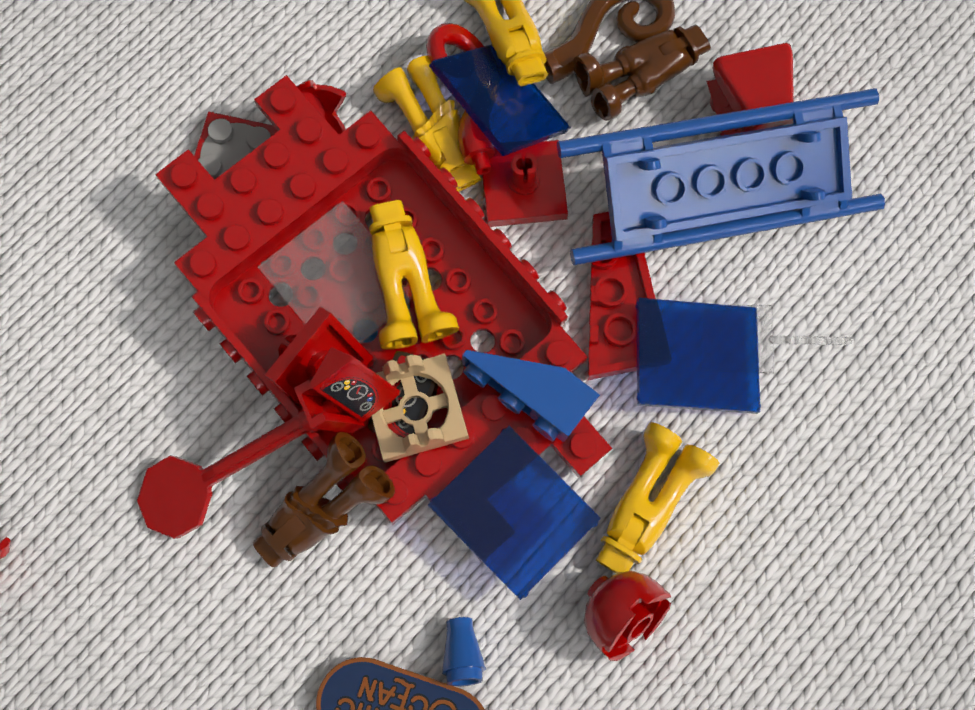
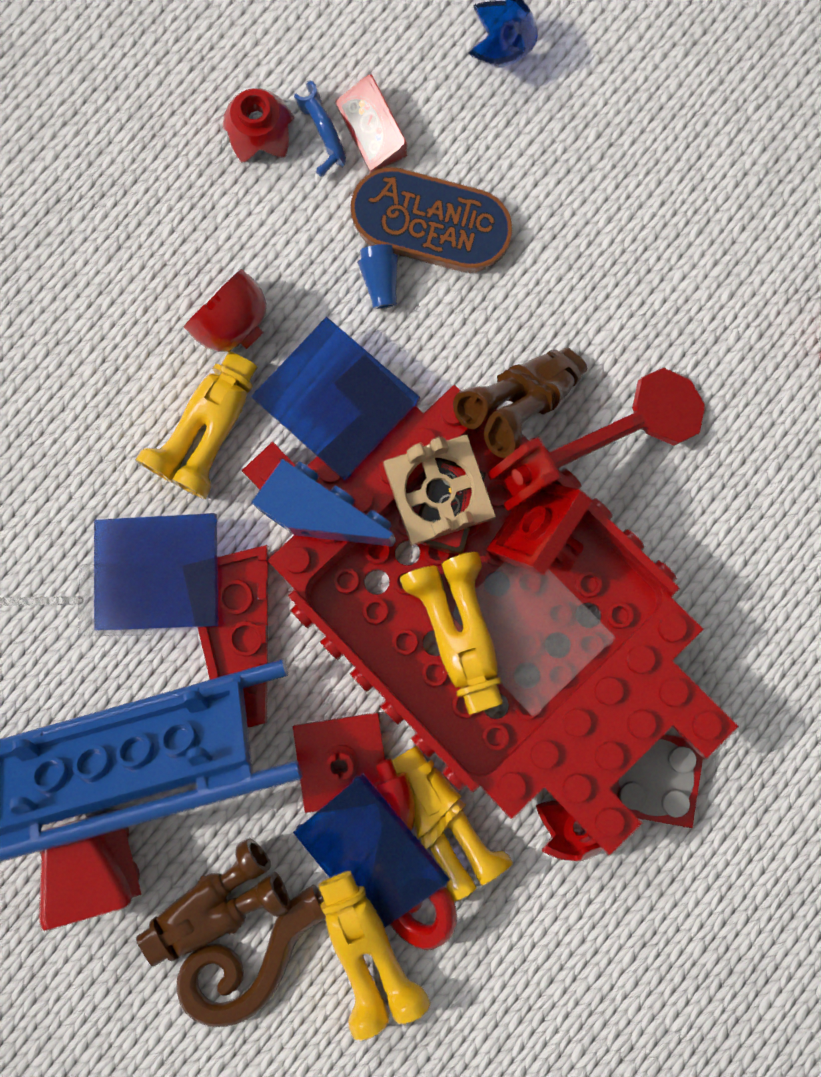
camera: 170 degrees right, 10 degrees up
(352, 385) = (502, 491): slope -> none

